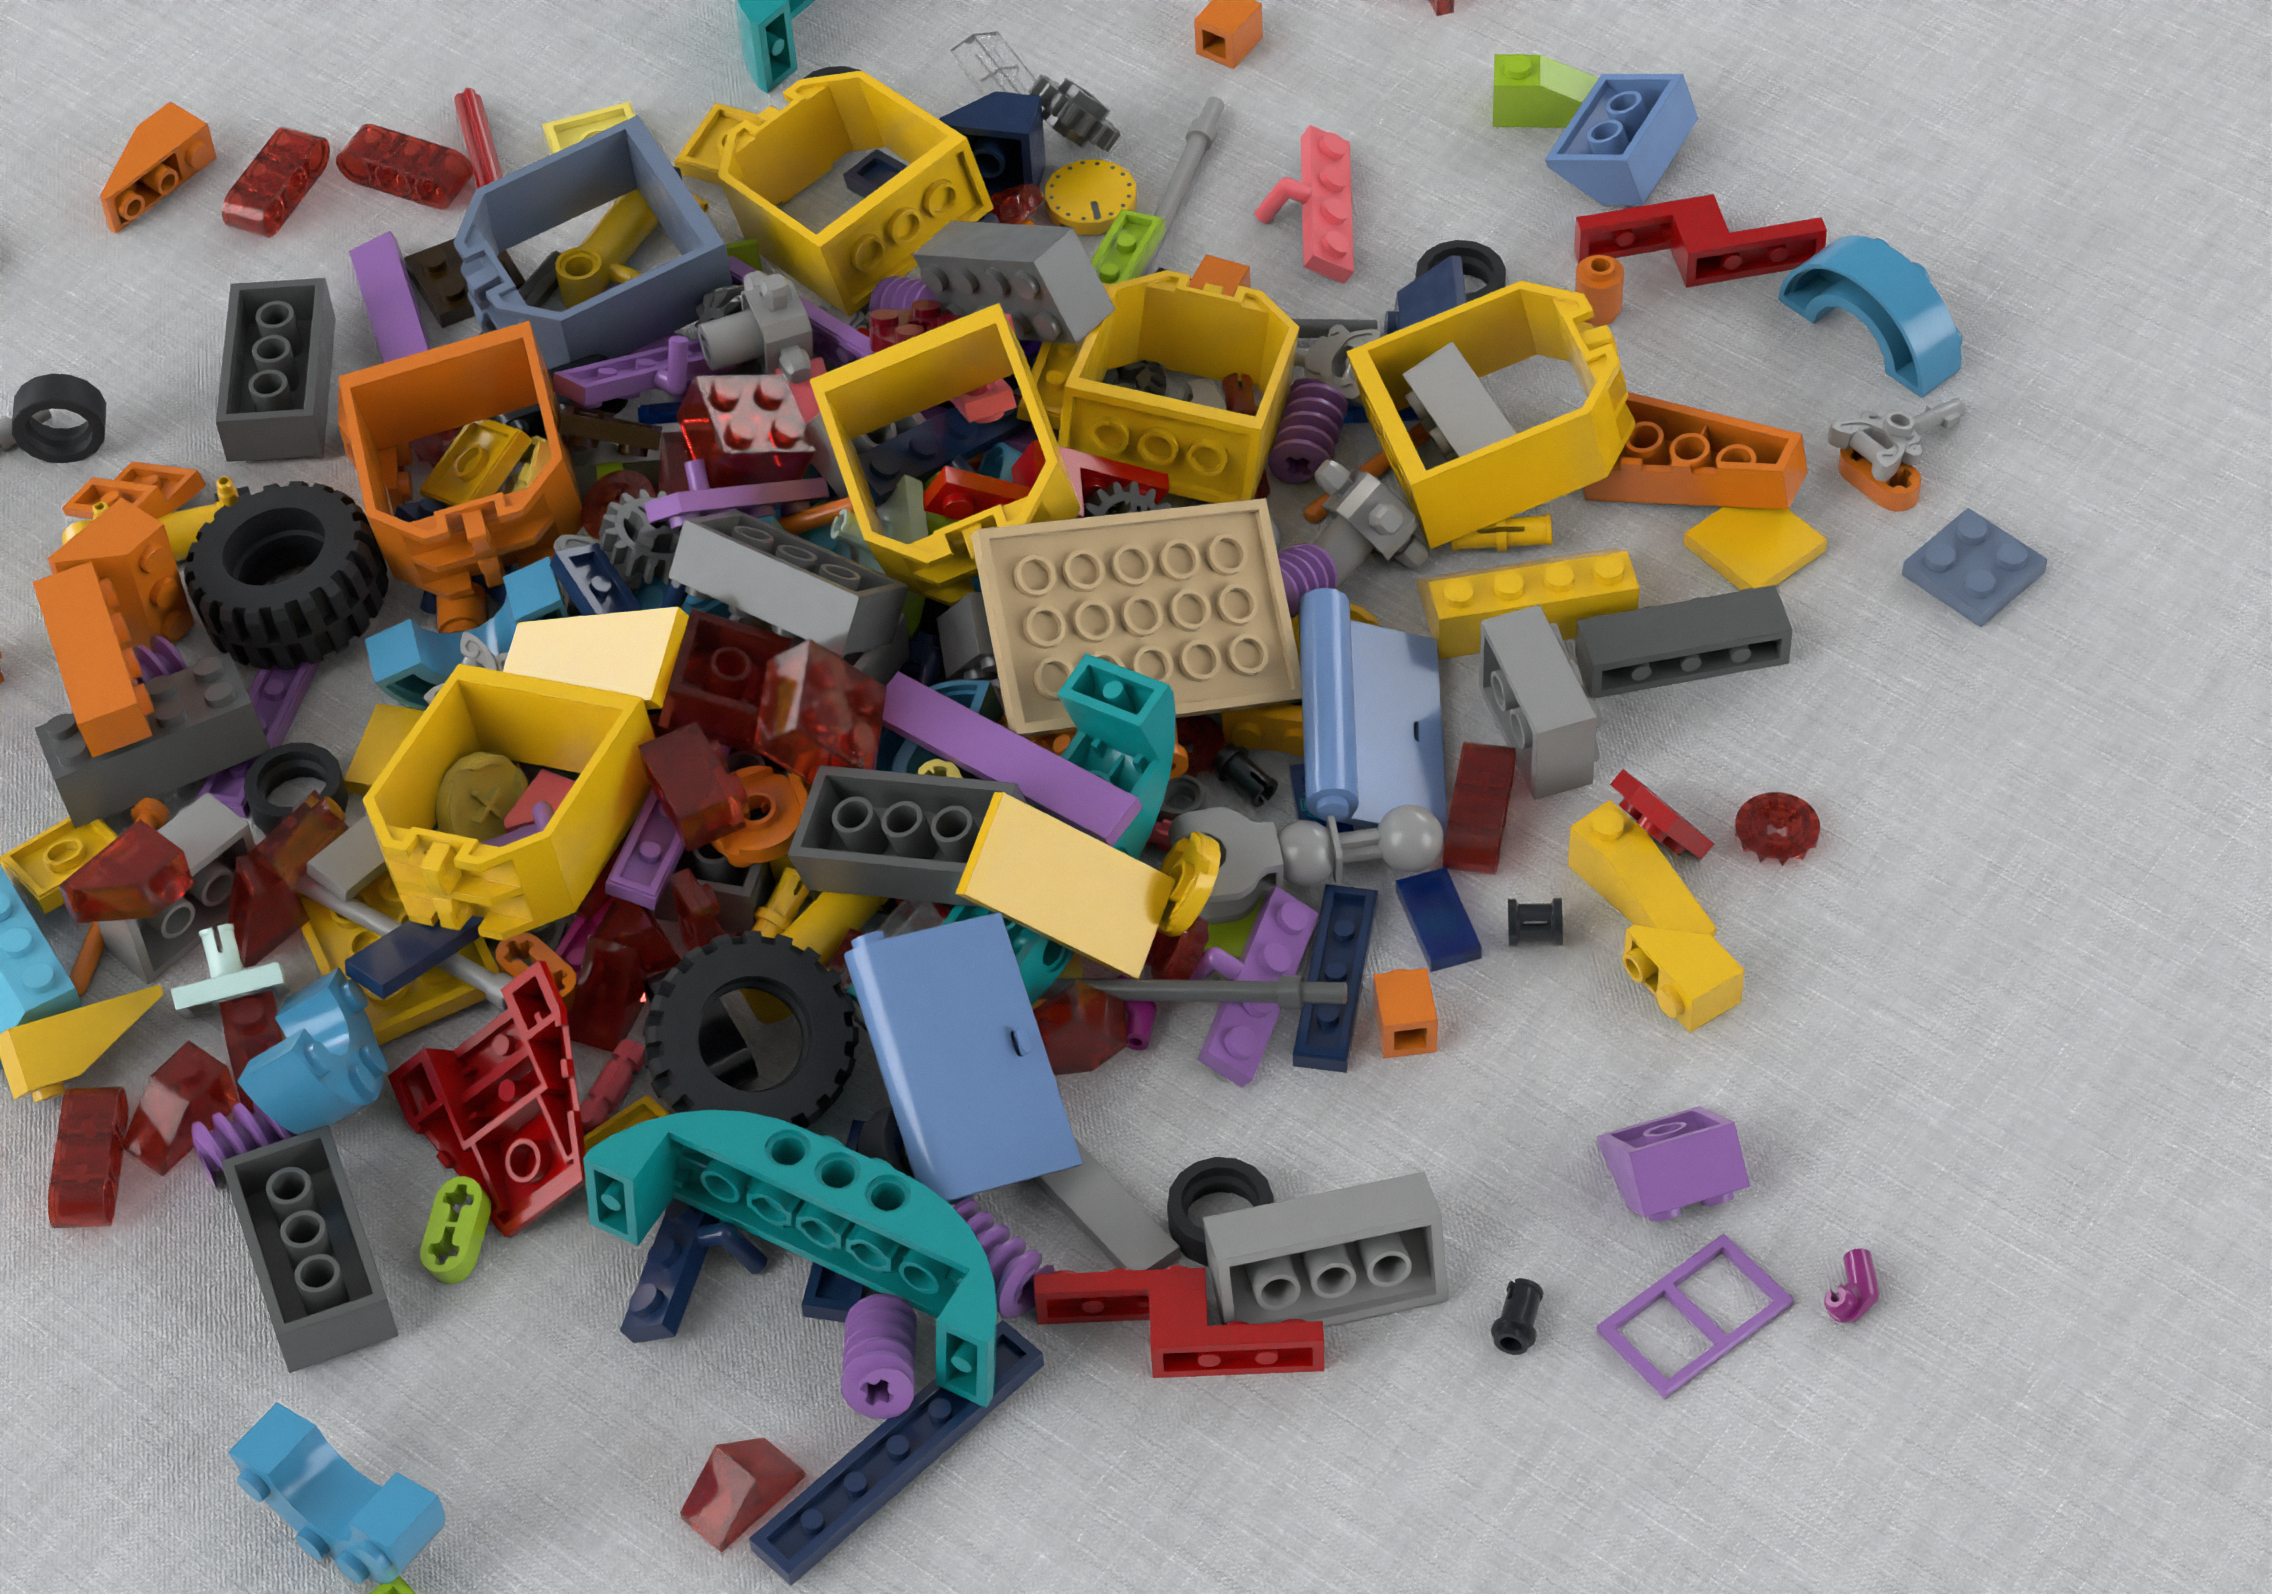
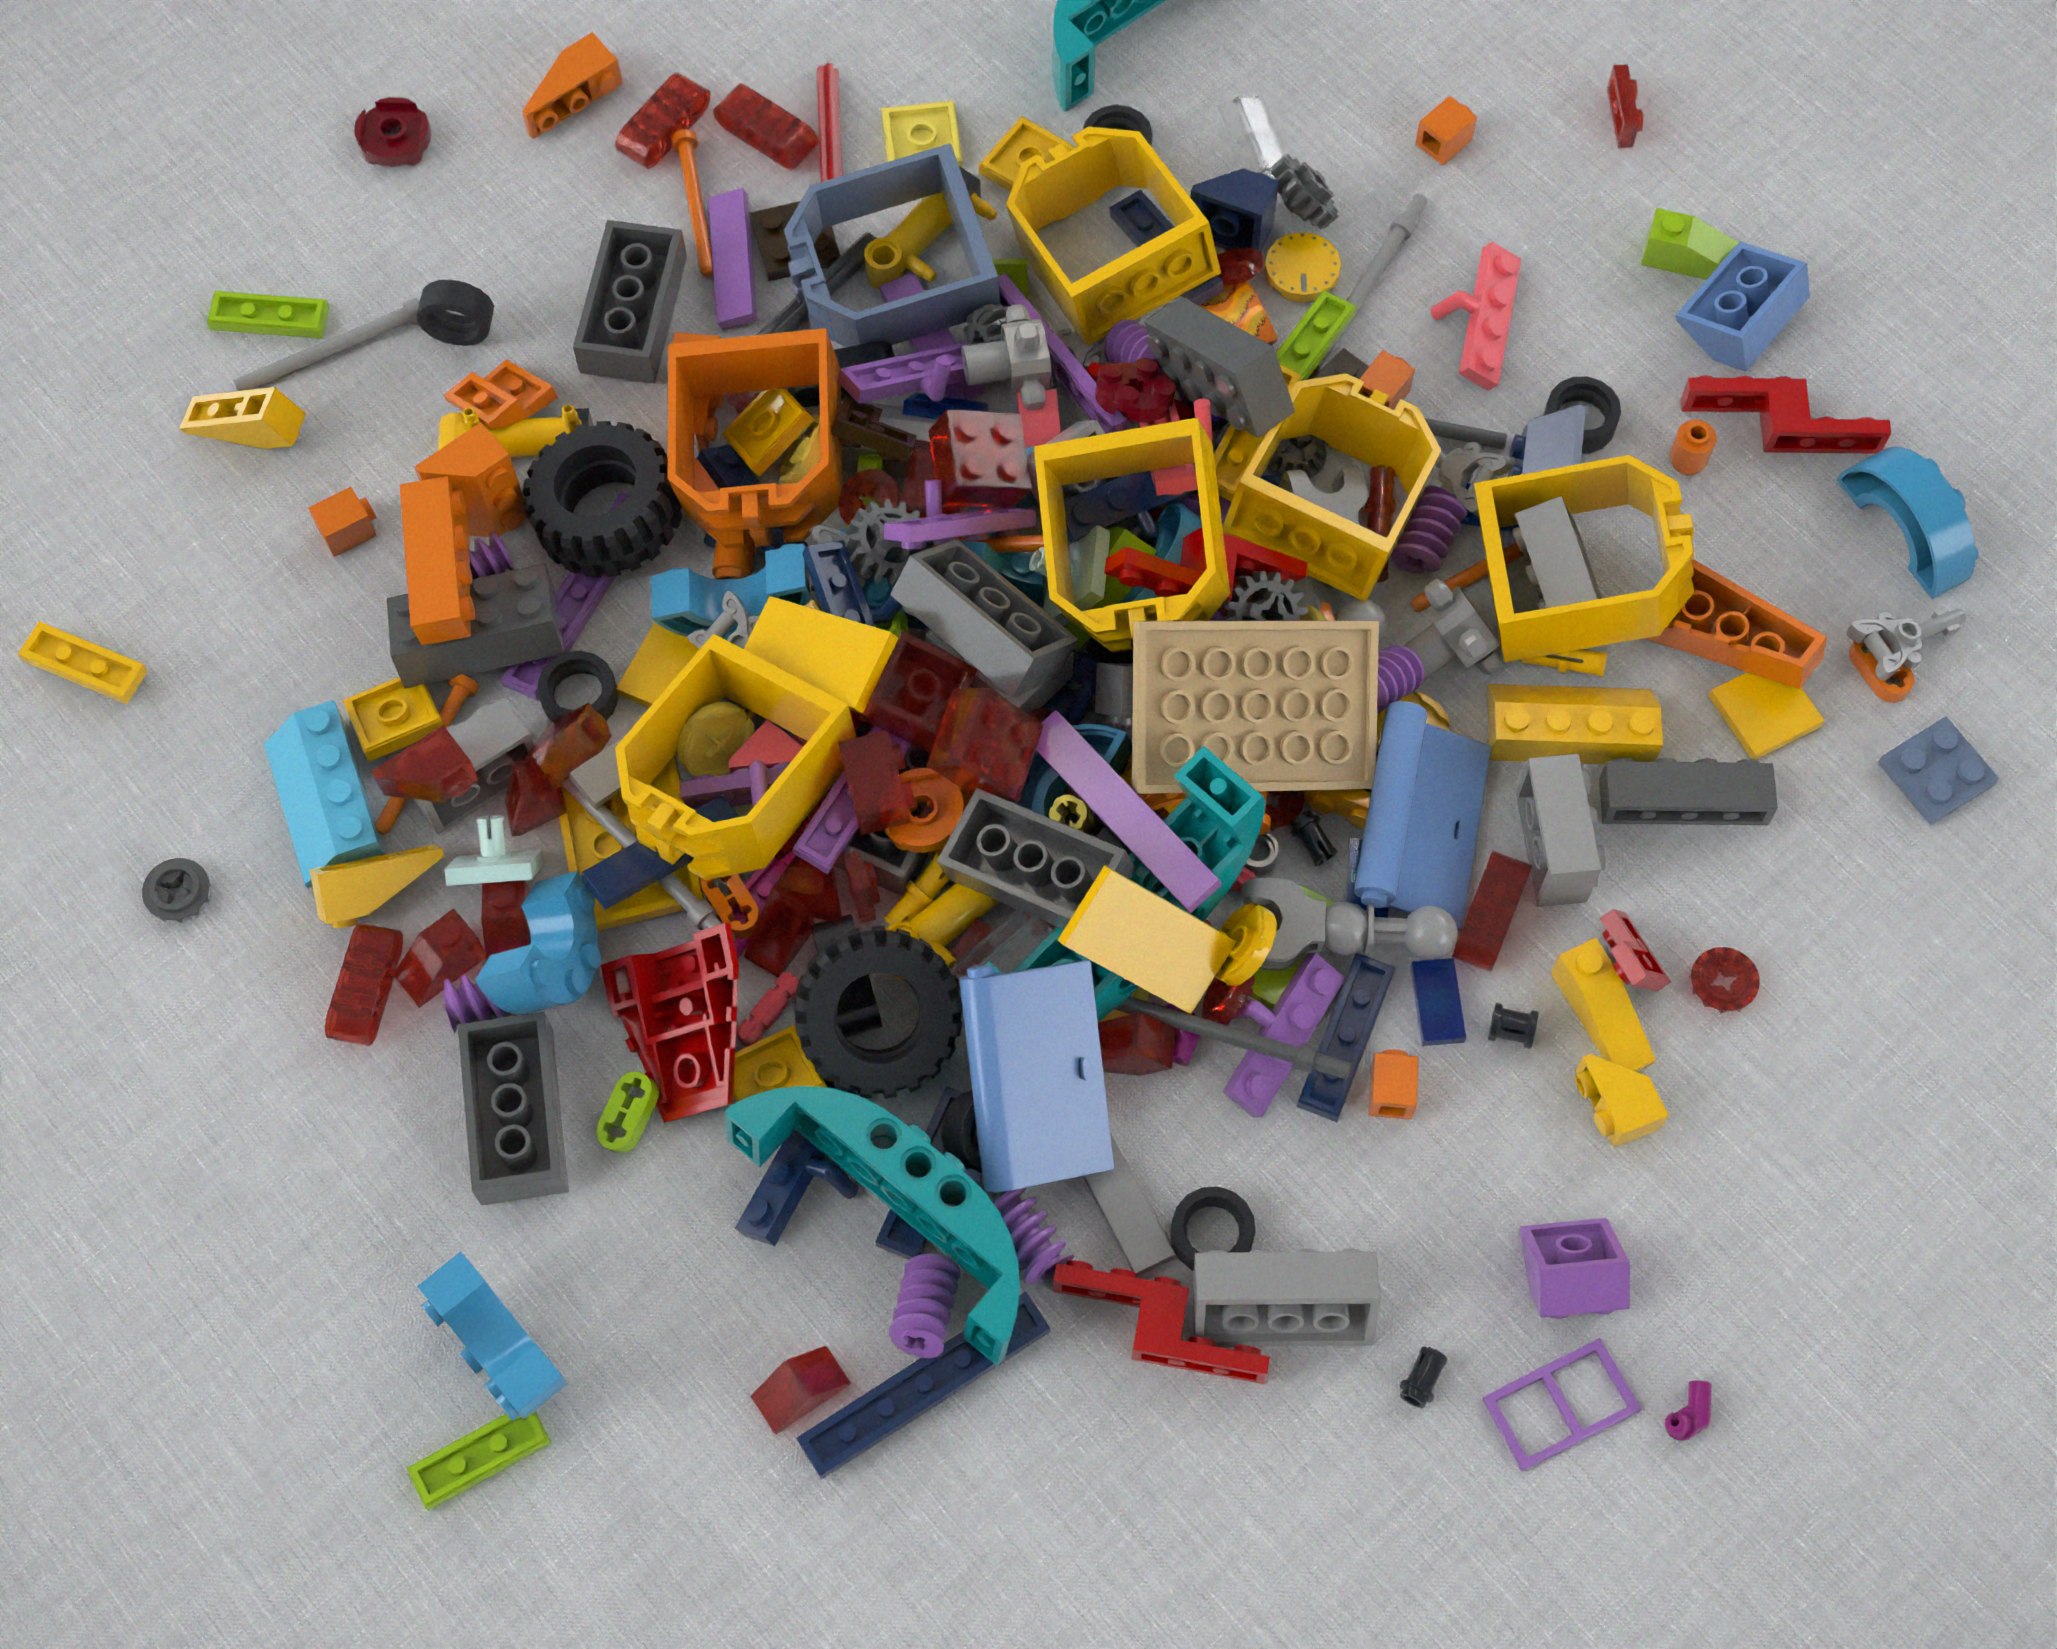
camera: 10 degrees right, 15 degrees up
(308, 201) = (685, 142): none -> orange bar

